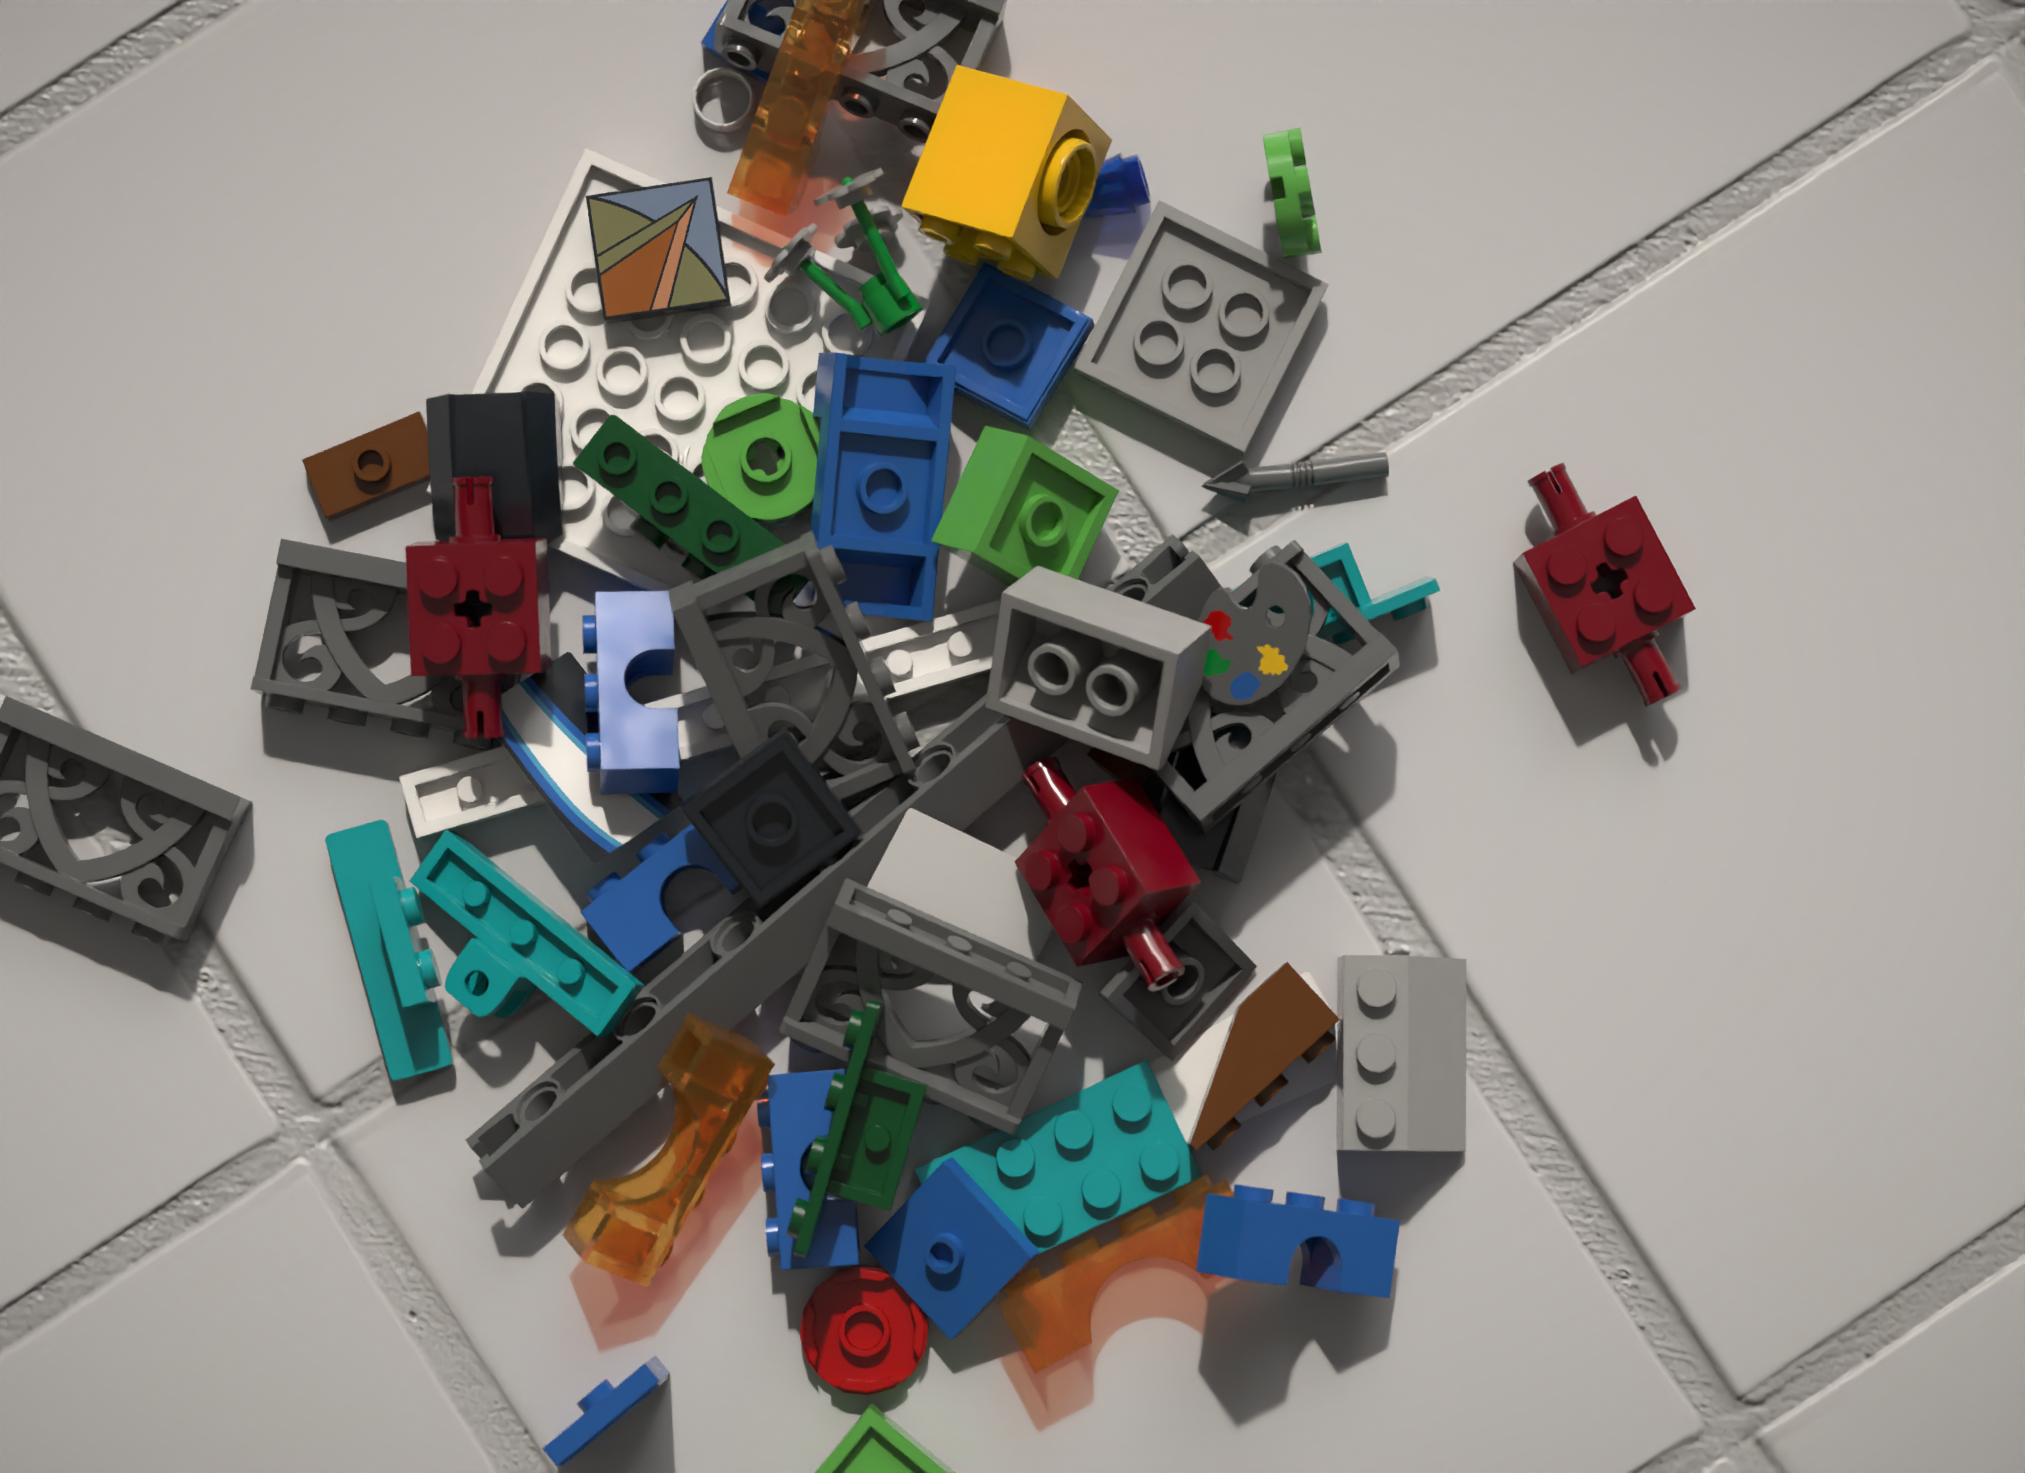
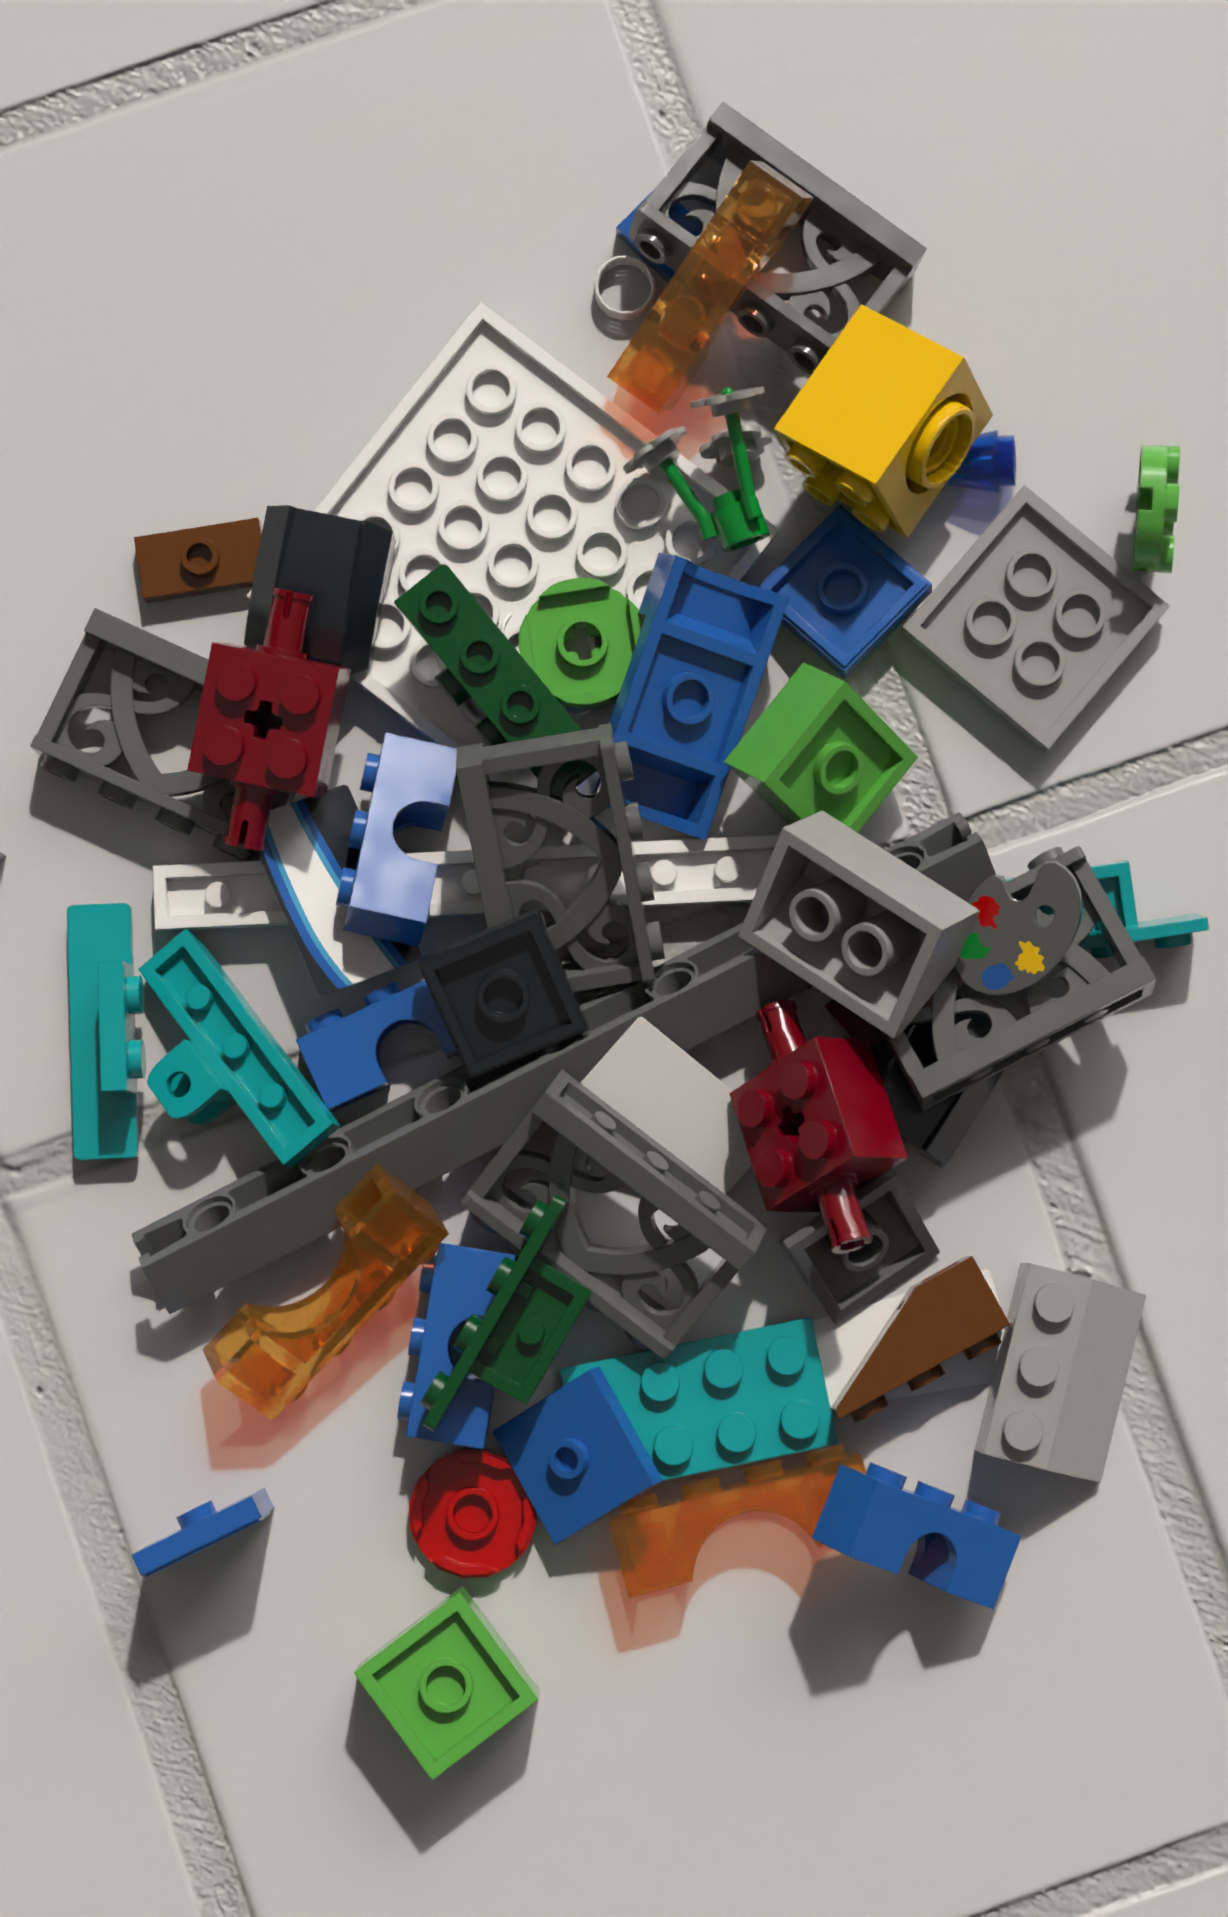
camera: 15 degrees right, 0 degrees up
(658, 250) = (527, 417): tile -> none
(1240, 480) = (1037, 777): dark grey piece -> none

